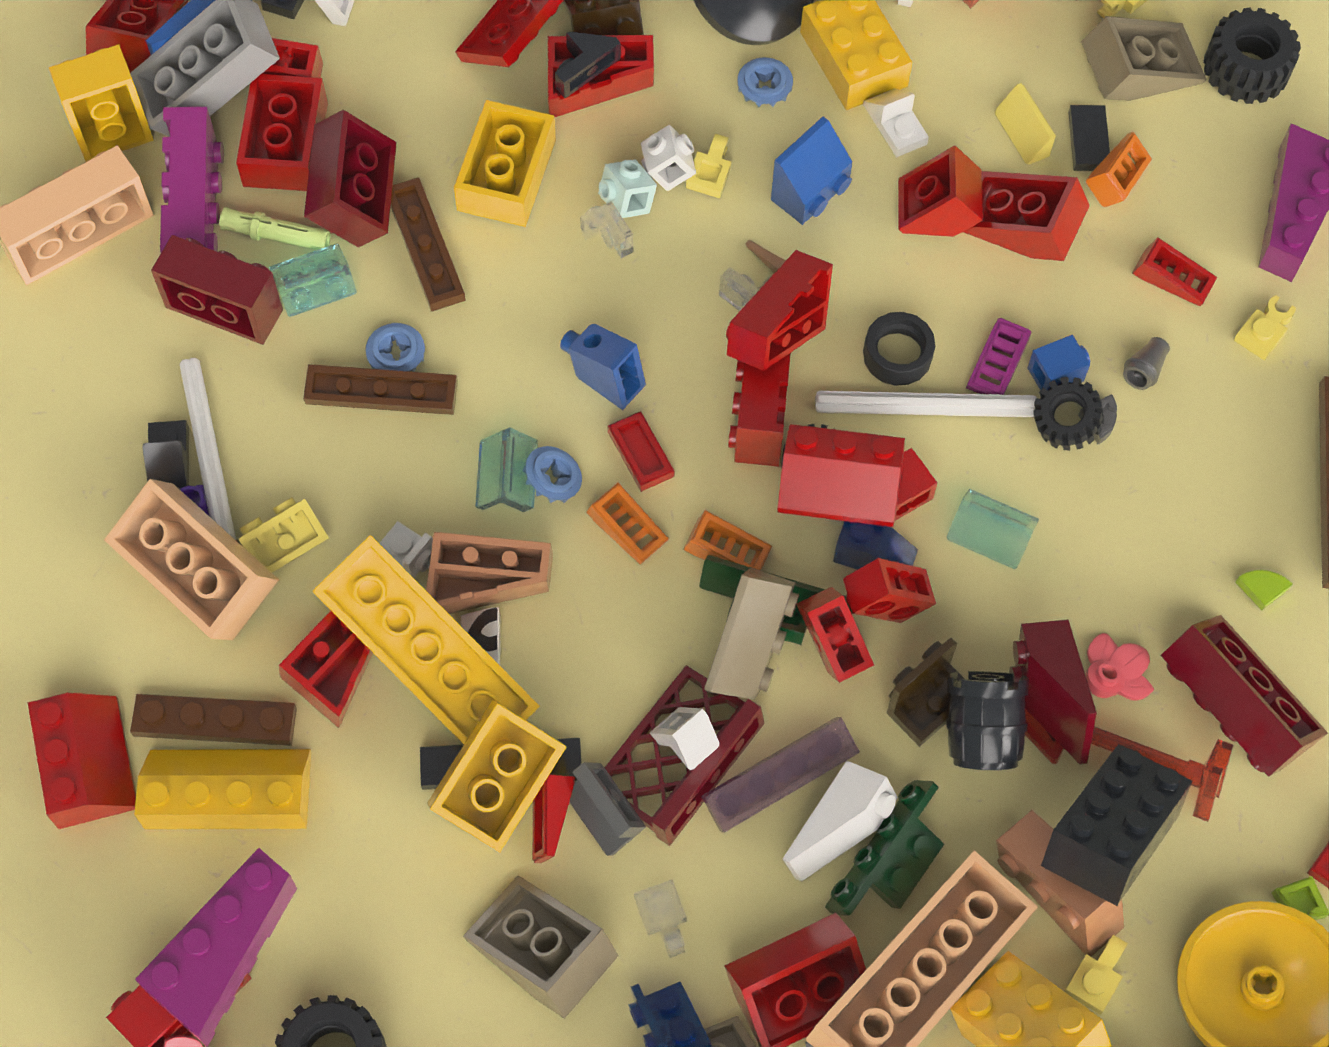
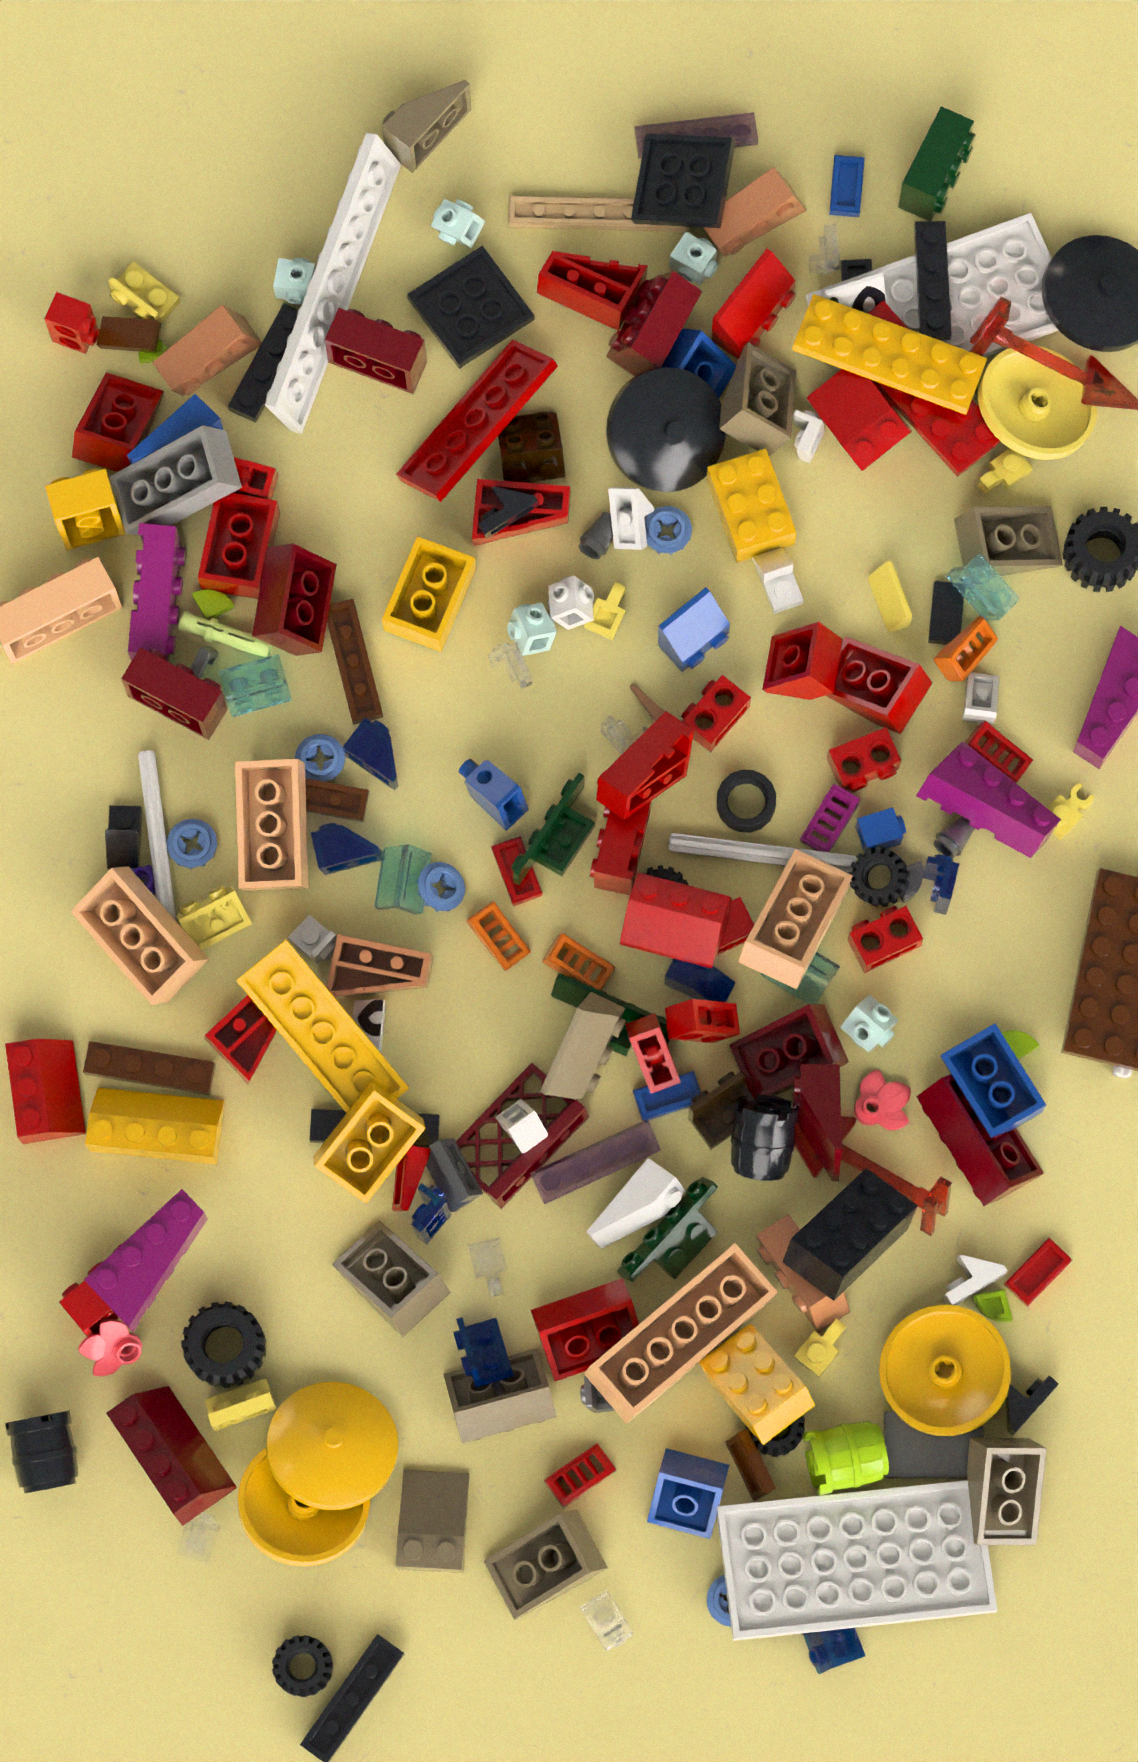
camera: 10 degrees right, 10 degrees up
(246, 442) = (189, 830): none -> medium blue gear
(252, 252) = (205, 656): none -> flat silver tile
(257, 198) = (212, 603): none -> lime tile
(343, 420) = (271, 824): none -> light nougat brick
(433, 442) = (342, 849): none -> clear blue slope
(457, 335) = (373, 751): none -> clear blue slope
(583, 856) = (430, 1217): none -> clear blue bracket
(686, 407) = (560, 836): none -> dark green bracket
(689, 94) = (597, 537): none -> dark grey cone
(720, 65) = (627, 517): none -> white slope
(855, 261) = (721, 716): none -> red brick
(857, 691) = (667, 1100): none -> blue tile
(982, 463) = (795, 919): none -> light nougat brick
(990, 616) = (777, 1050): none -> dark red slope
(1022, 286) = (859, 753): none -> red brick
(1089, 578) = (870, 1024): none -> light aqua brick
(1092, 487) = (889, 945): none -> red brick
(1129, 101) = (983, 588): none -> clear light blue bracket
(1146, 403) = (944, 873): none -> clear blue bracket
(1148, 218) = (981, 698): none -> white slope
(1182, 318) = (989, 800): none -> magenta wedge
(1254, 625) = (993, 1081): none -> blue slope
(1275, 863) = (979, 1275): none -> white slope

